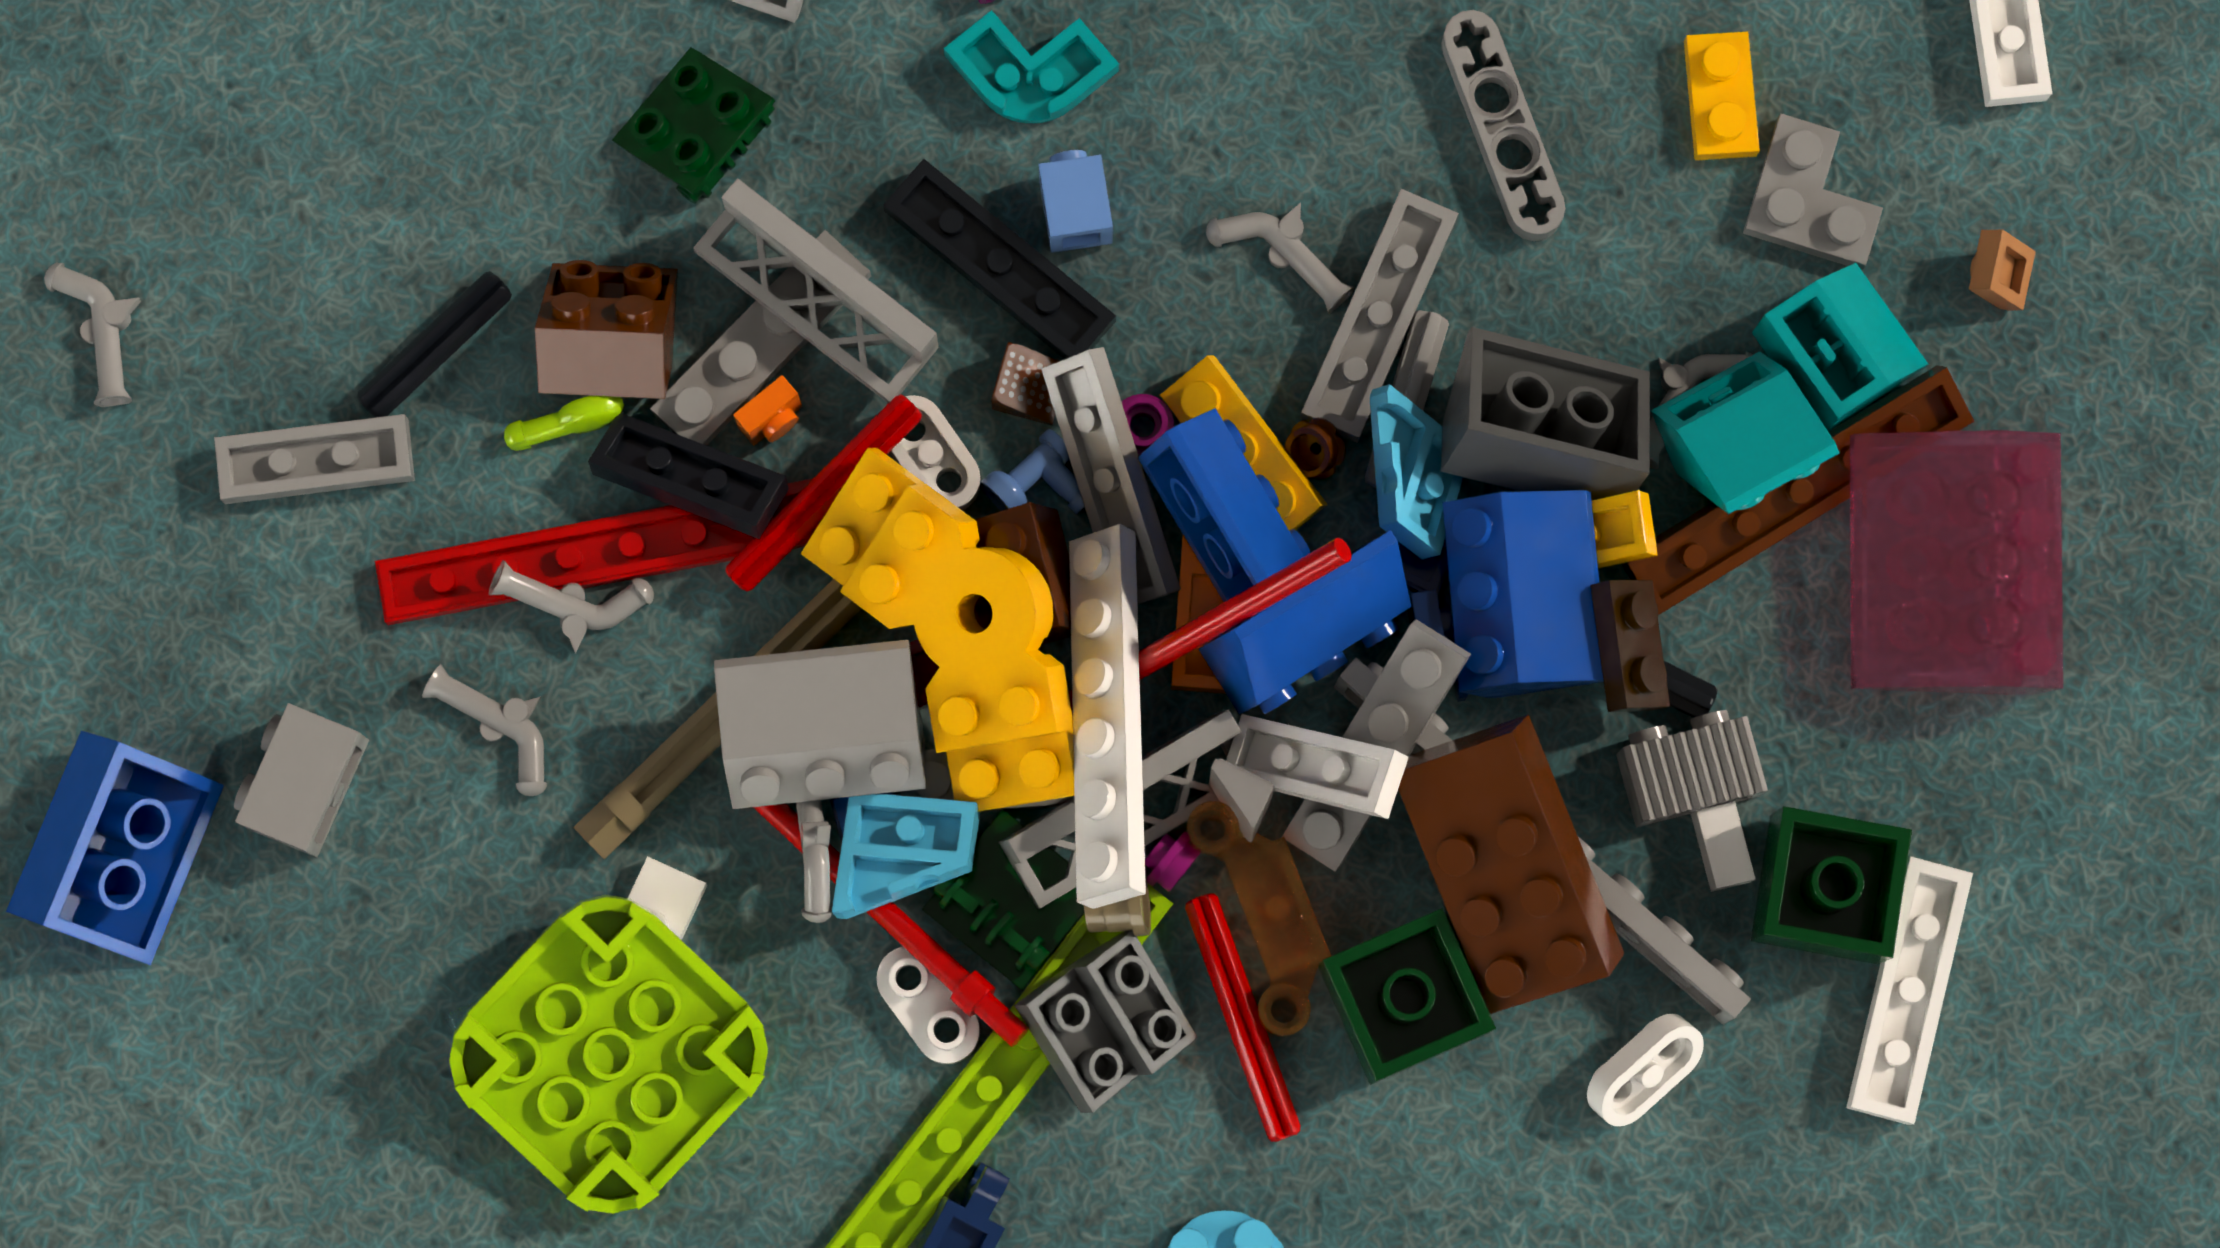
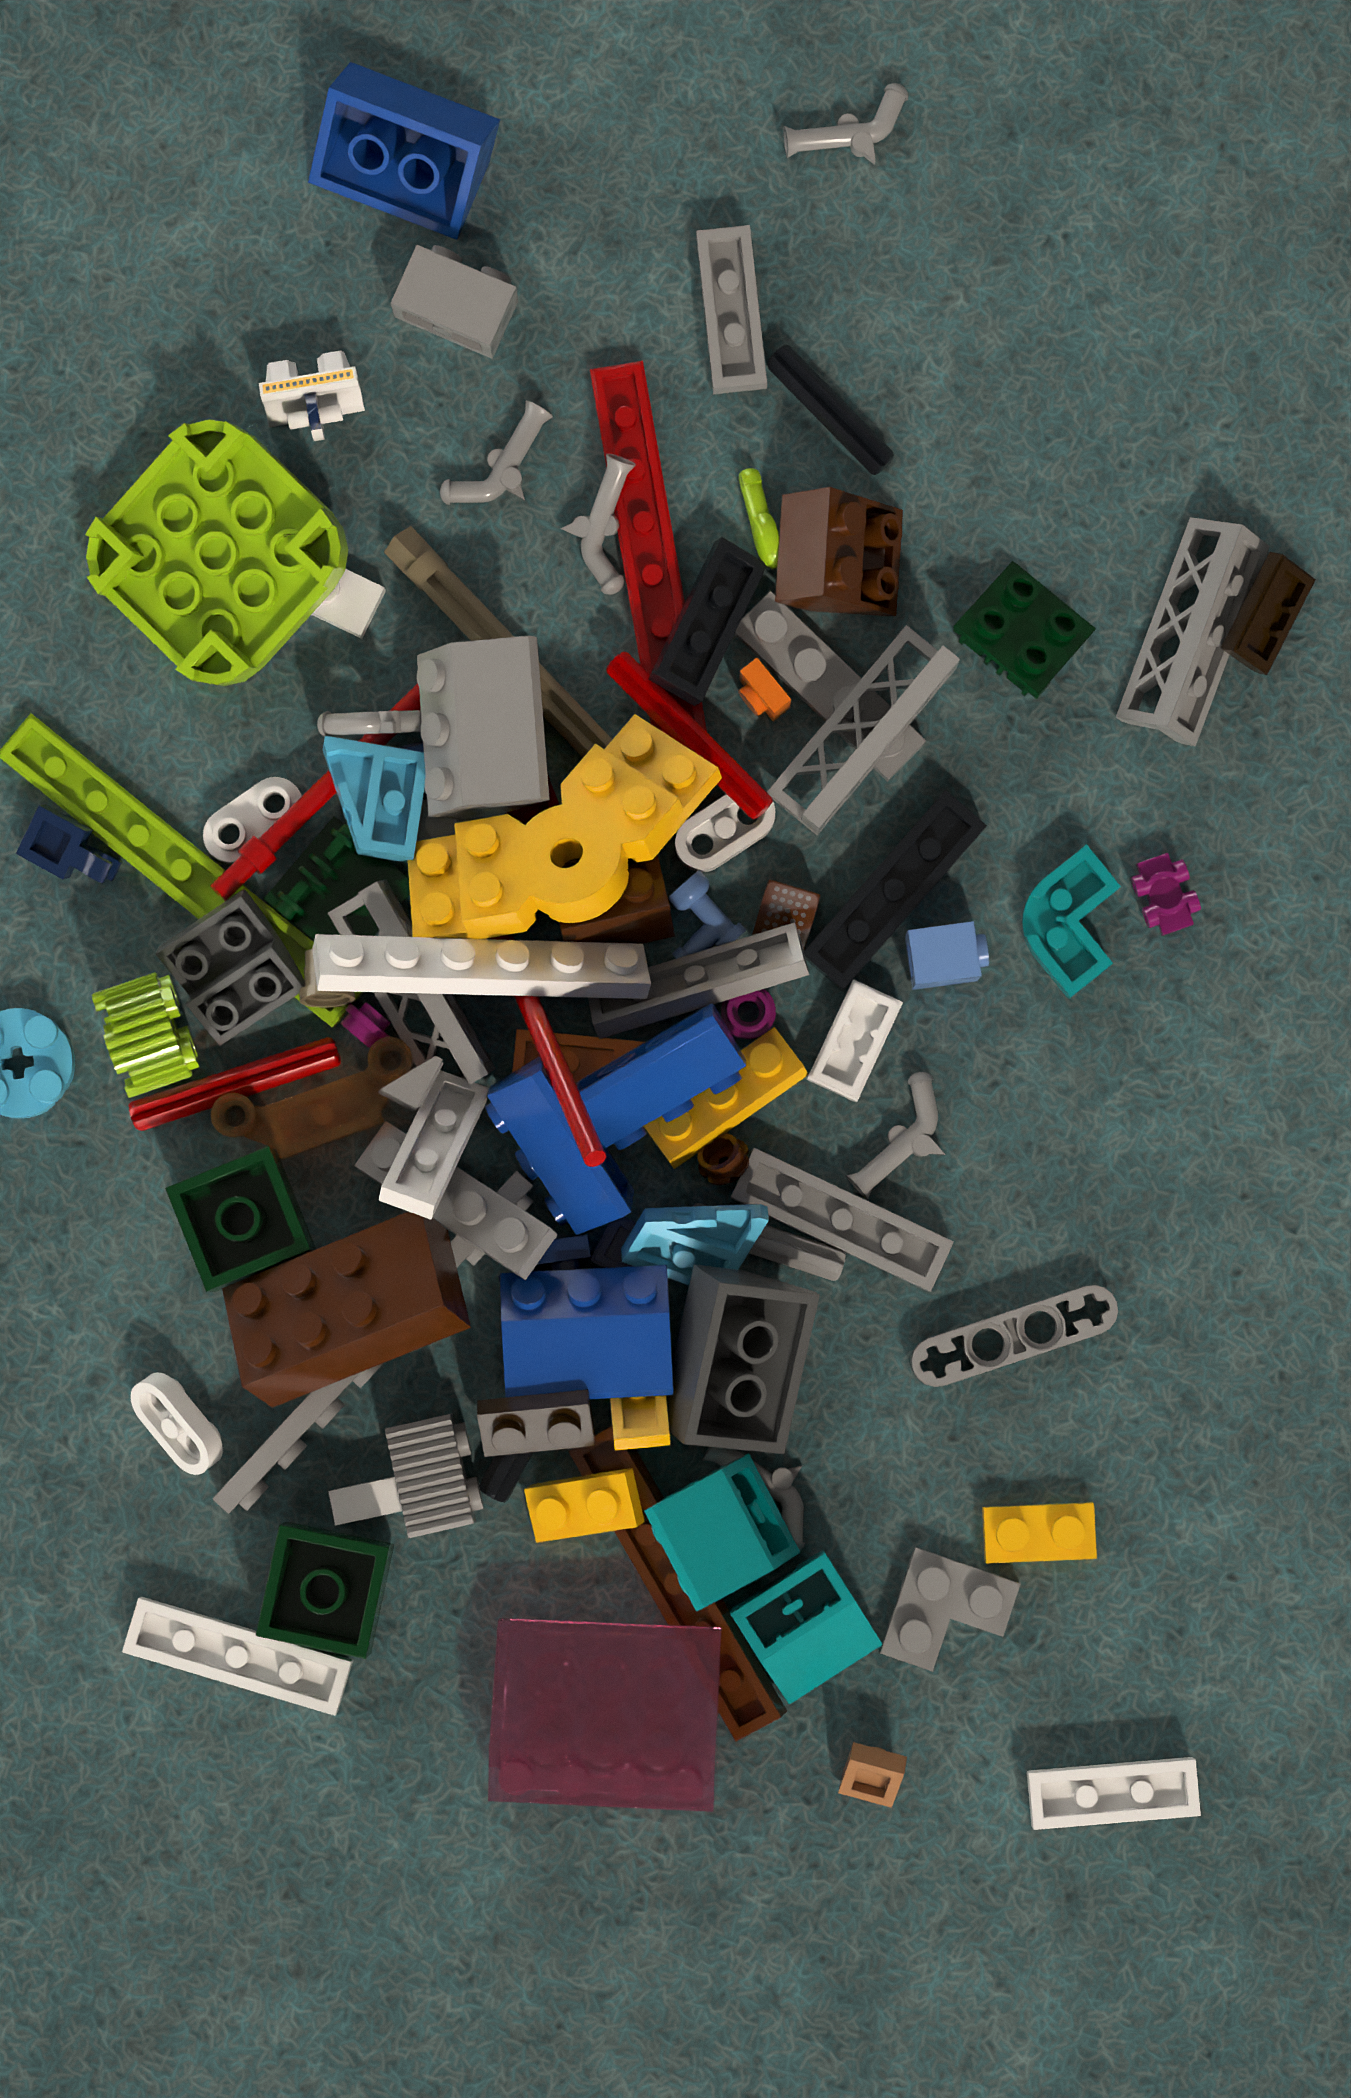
camera: 95 degrees right, 5 degrees up
(420, 945) = (311, 397): none -> white hips
(1174, 304) = (854, 1040): none -> white plate
(1190, 1114) = (144, 1033): none -> lime brick
(1718, 595) = (584, 1505): none -> yellow plate

